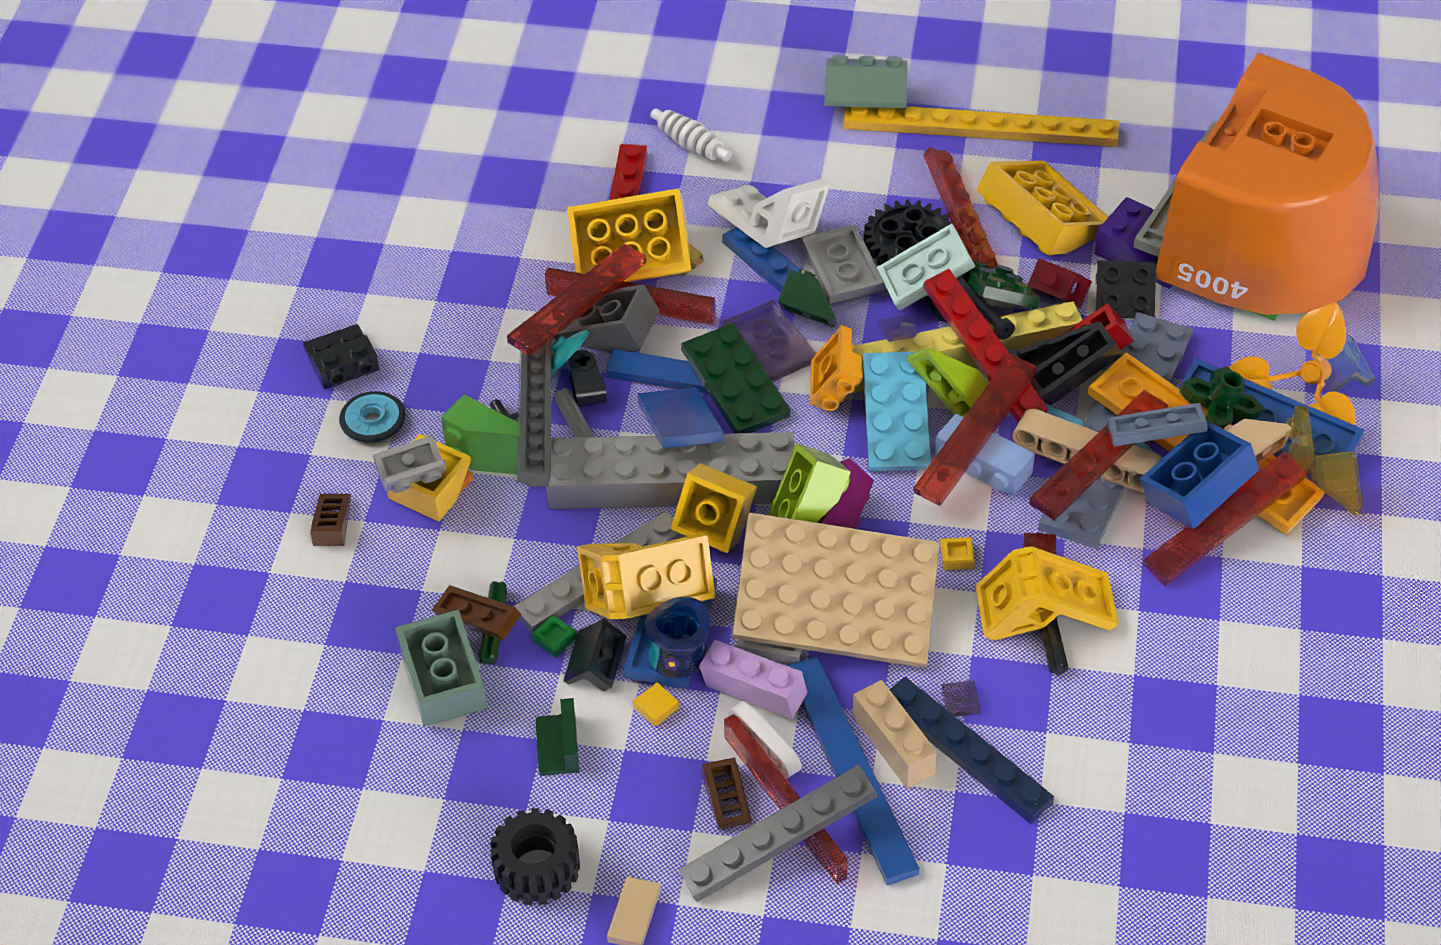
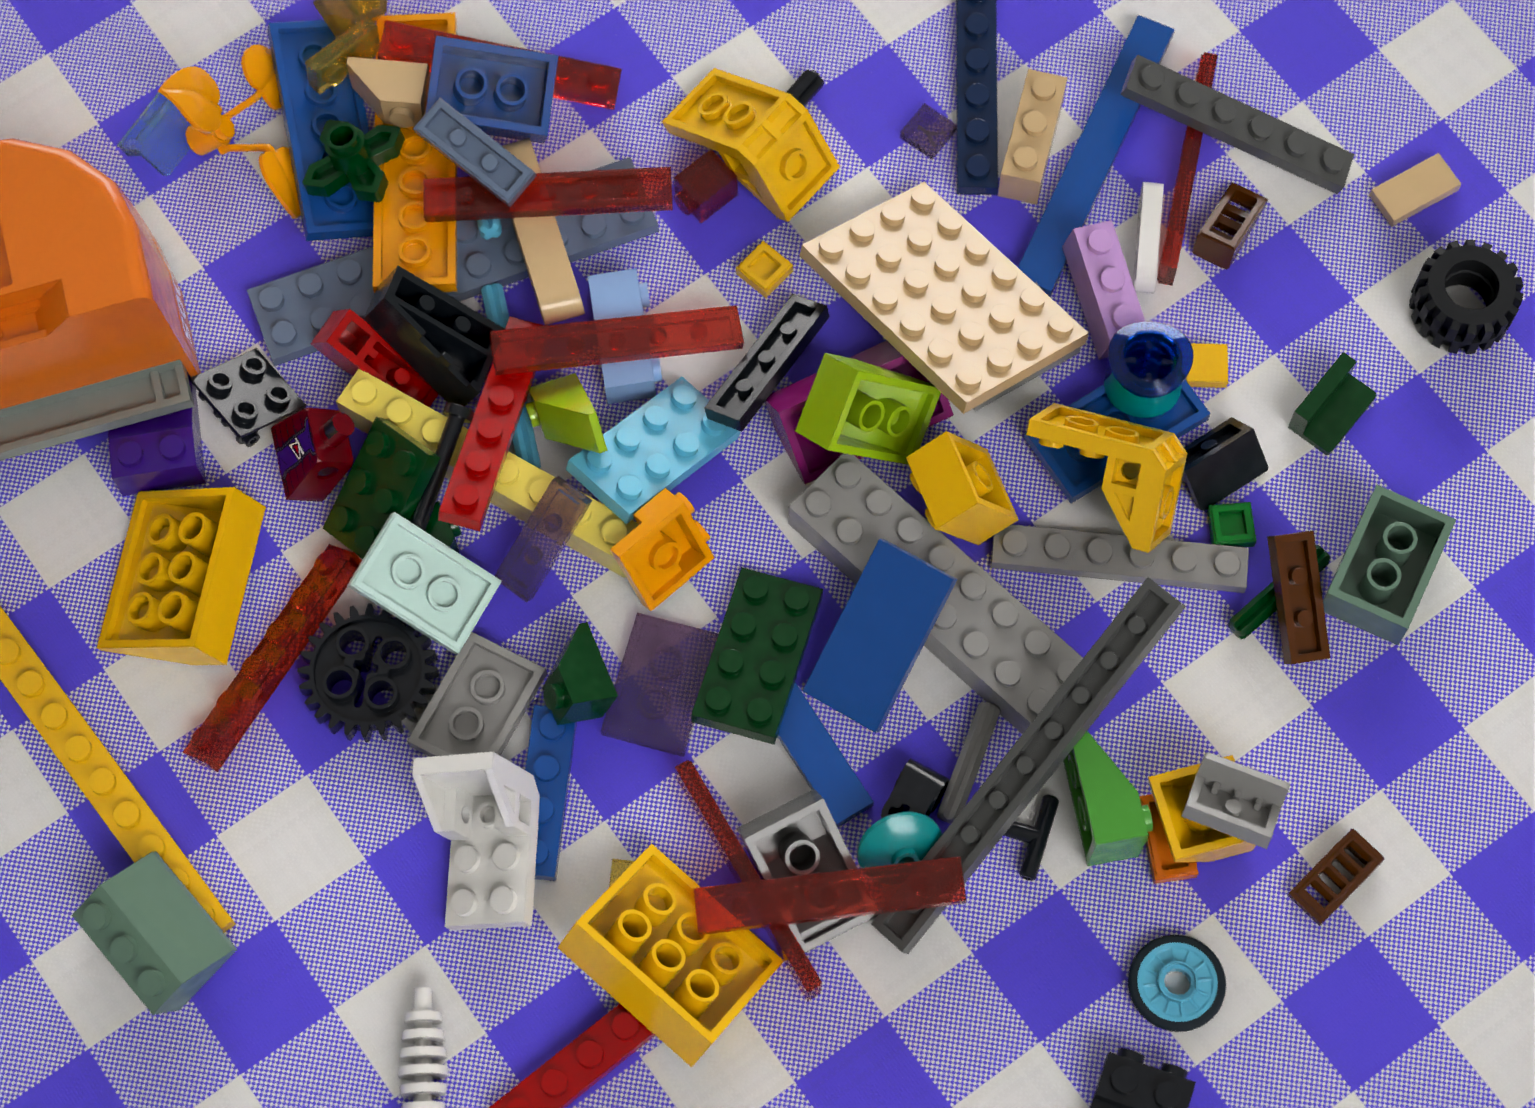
camera: 135 degrees left, 20 degrees up
(890, 489) = (767, 362): none -> black plate

